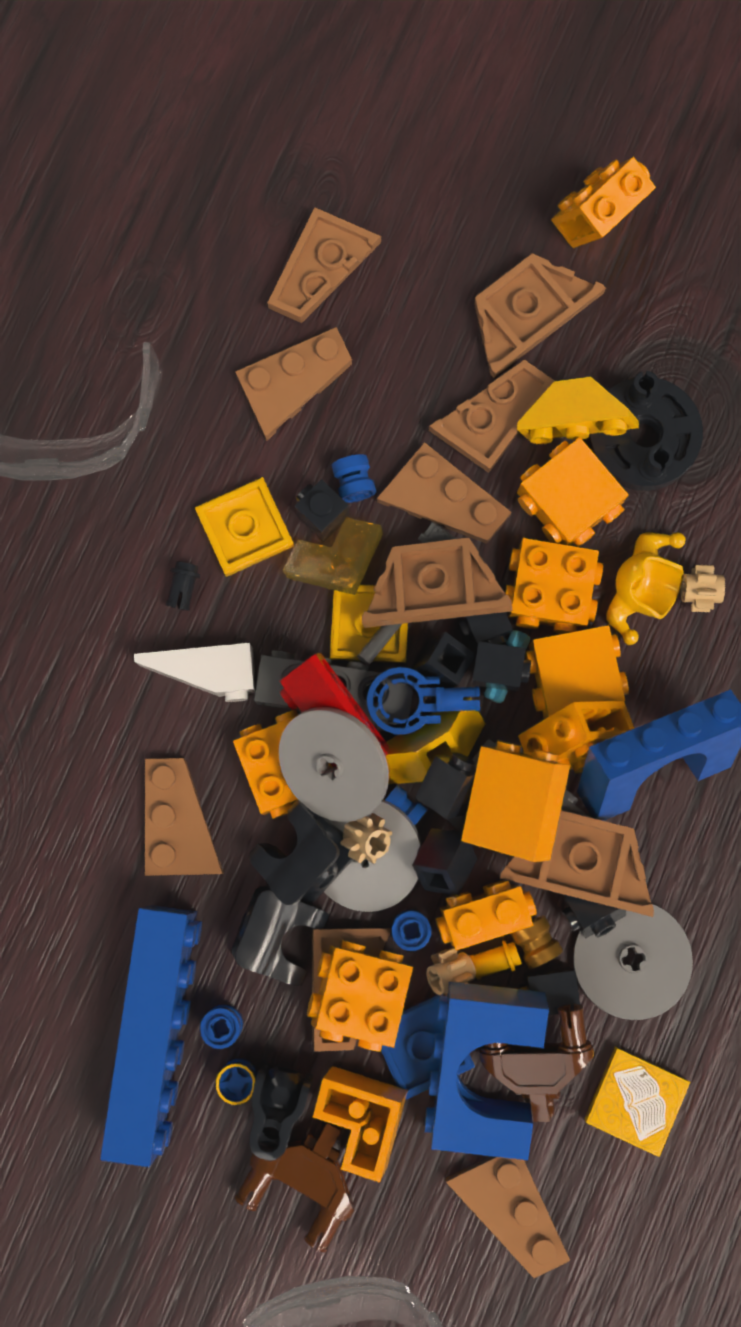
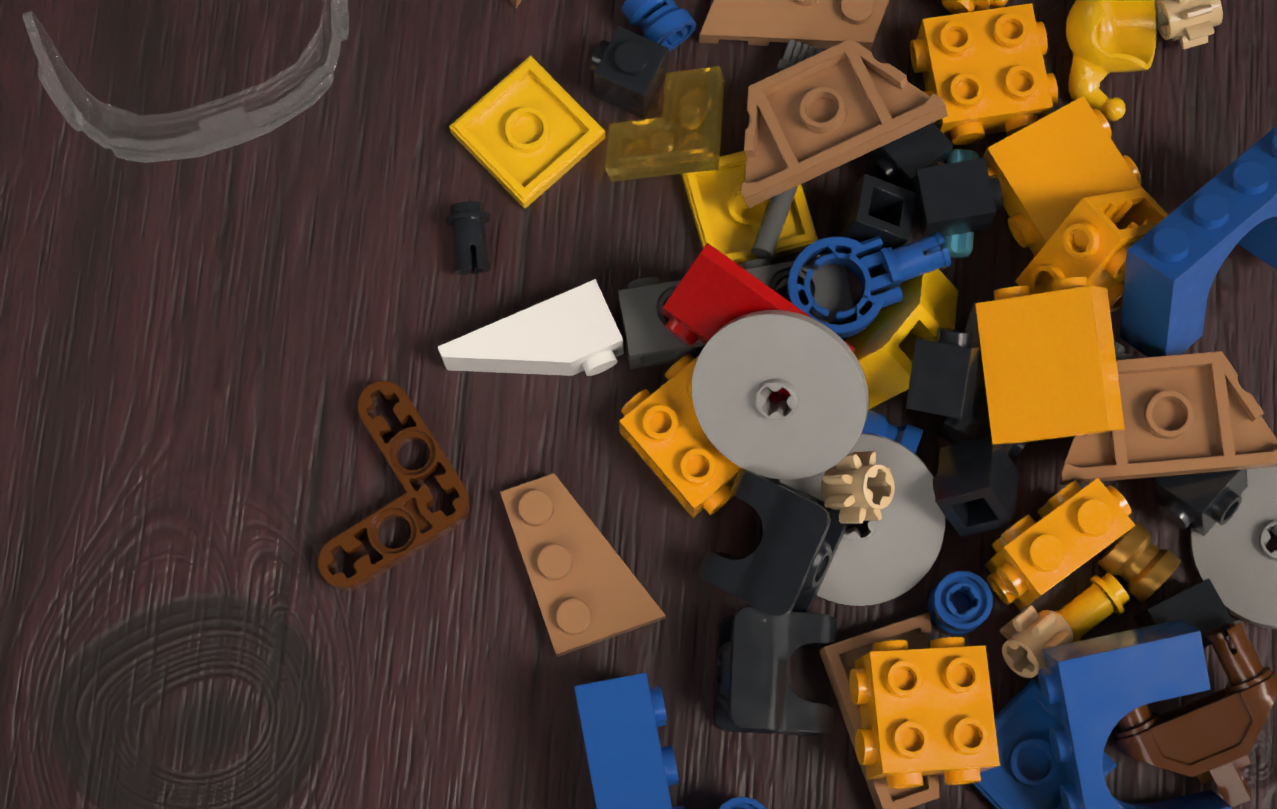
camera: 20 degrees left, 5 degrees down
(88, 749) = (411, 506): none -> reddish brown beam

